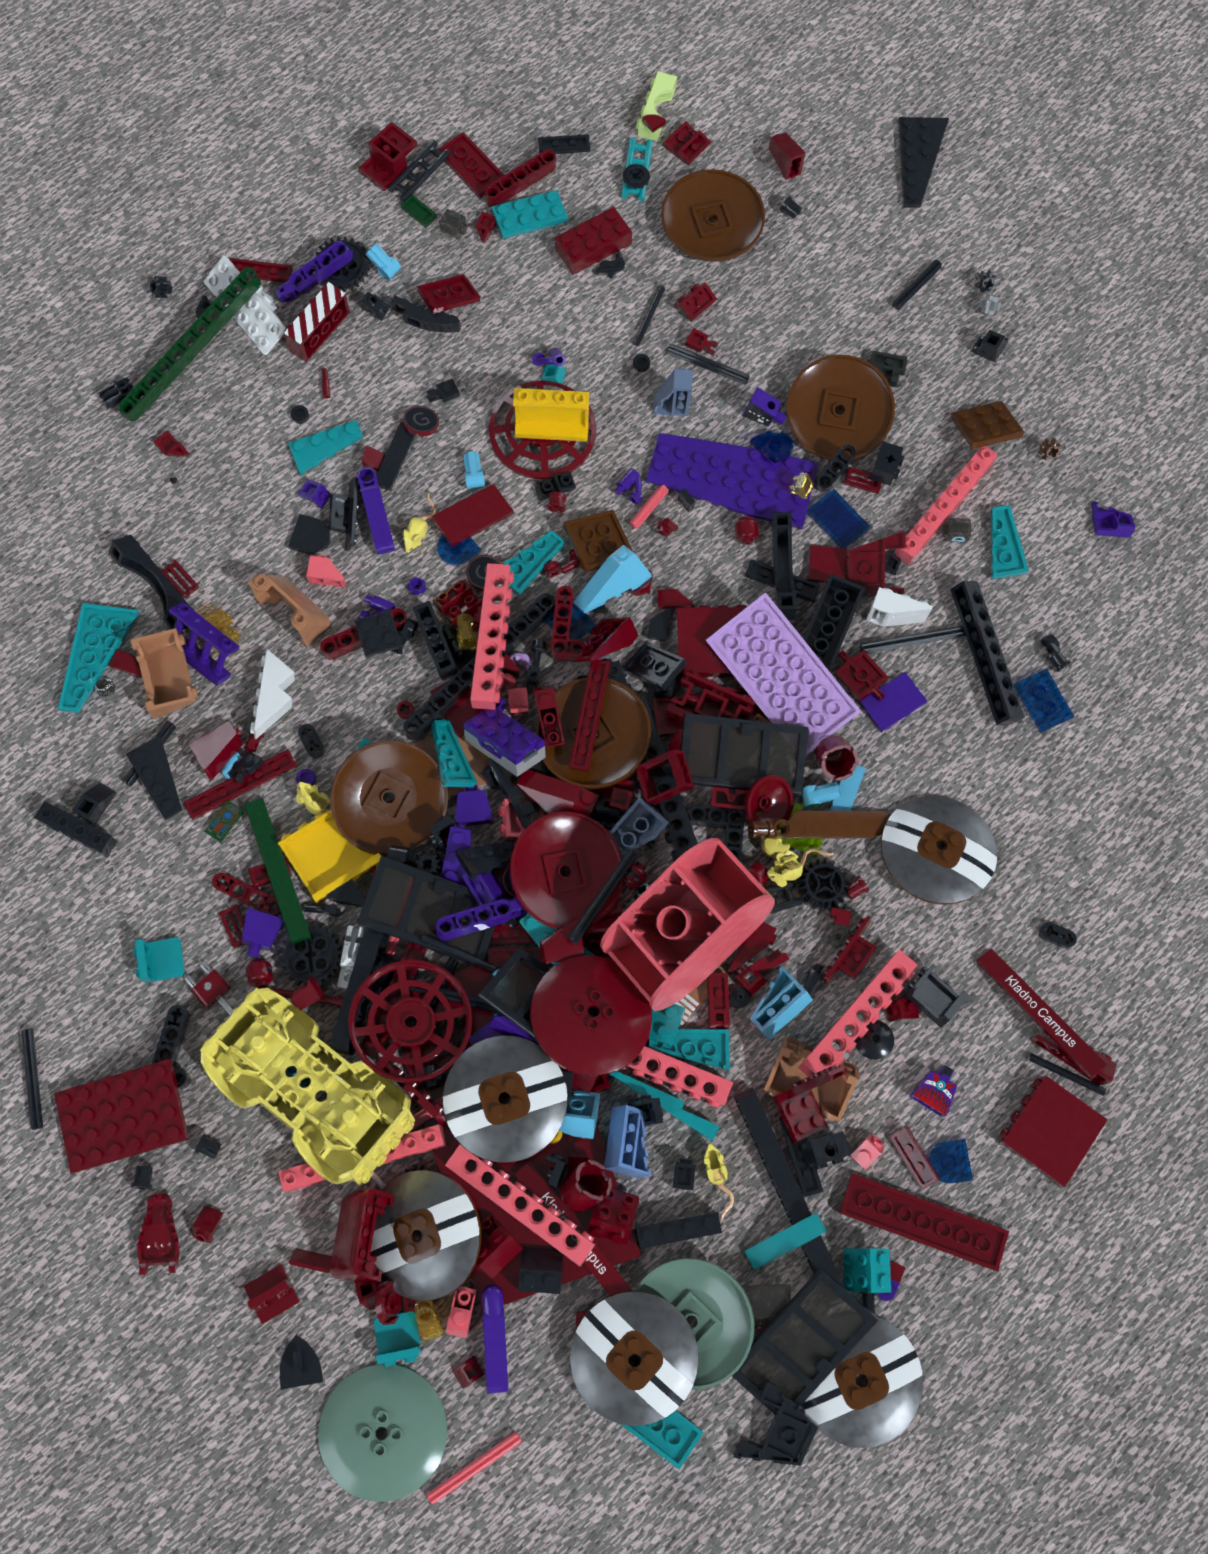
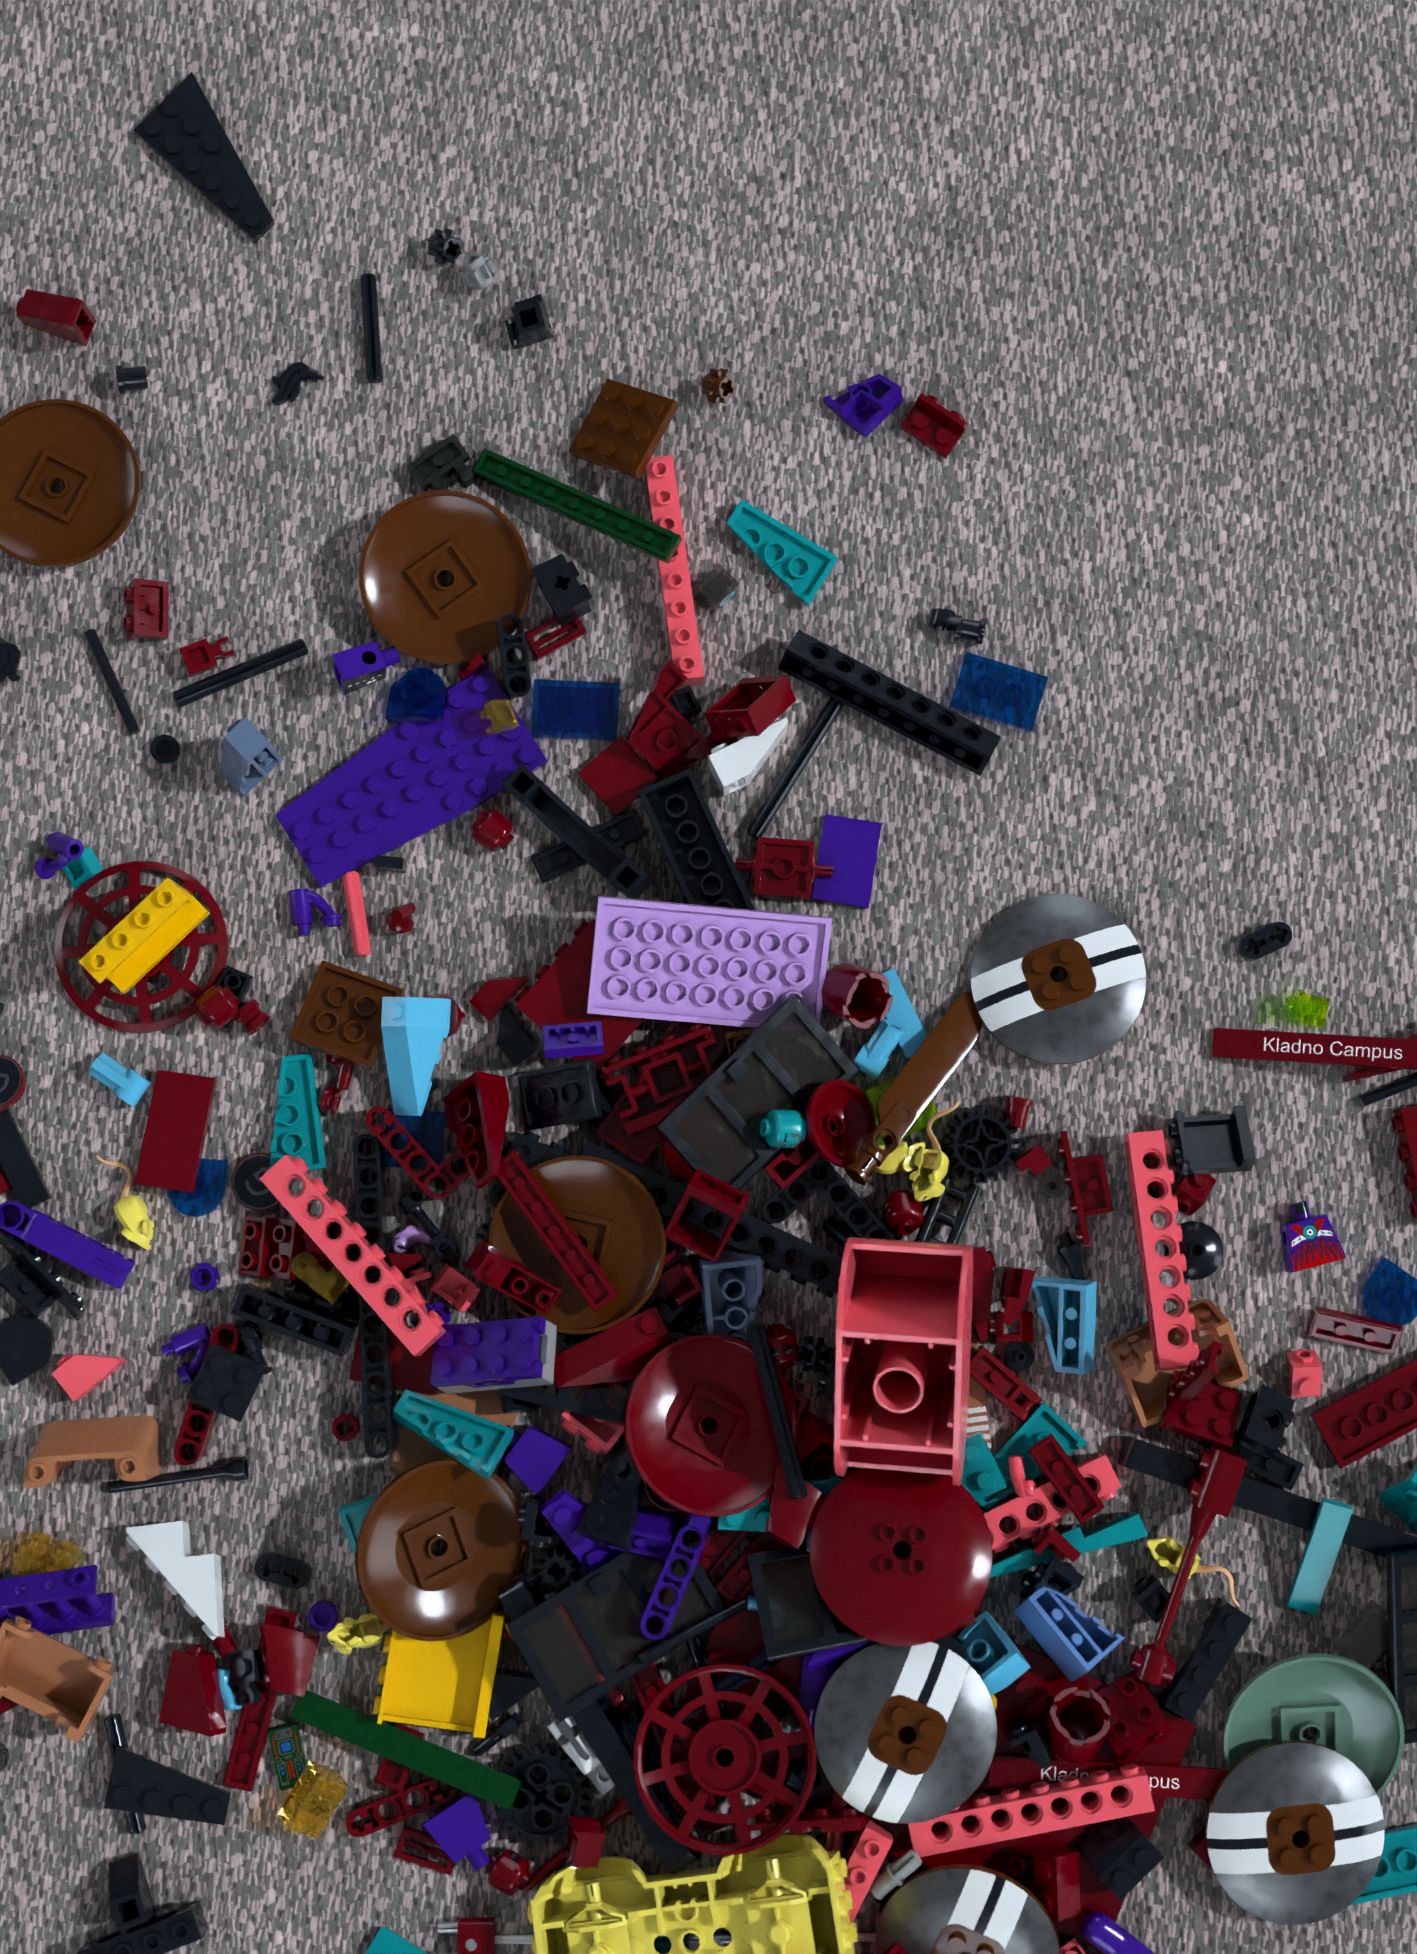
camera: 45 degrees left, 10 degrees up
(221, 842) = (313, 1800): none -> clear yellow brick
(271, 777) = (288, 1658): none -> dark red slope
(340, 678) = (235, 1469): none -> black piece
(427, 1162) = (895, 1874): none -> light grey axle
(548, 480) = (217, 1006): none -> dark red head
(666, 1098) = (1060, 1546): none -> dark red bracket
(678, 1053) = (1017, 1476): none -> coral arm
(687, 643) = (573, 1039): none -> dark purple bracket
(702, 1071) = (1065, 1478): none -> dark red tile
(740, 776) = (783, 1128): none -> teal head
(763, 1152) = (1211, 1495): none -> dark red bar
(814, 456) = (475, 664): none -> dark red tile
(858, 273) = (291, 382): none -> black piece
(920, 588) = (749, 709): none -> dark red window
(931, 435) = (577, 505): none -> dark green tile
(1046, 986) = (1307, 1008): none -> clear neon green bracket
(1134, 560) = (934, 425): none -> dark red bracket

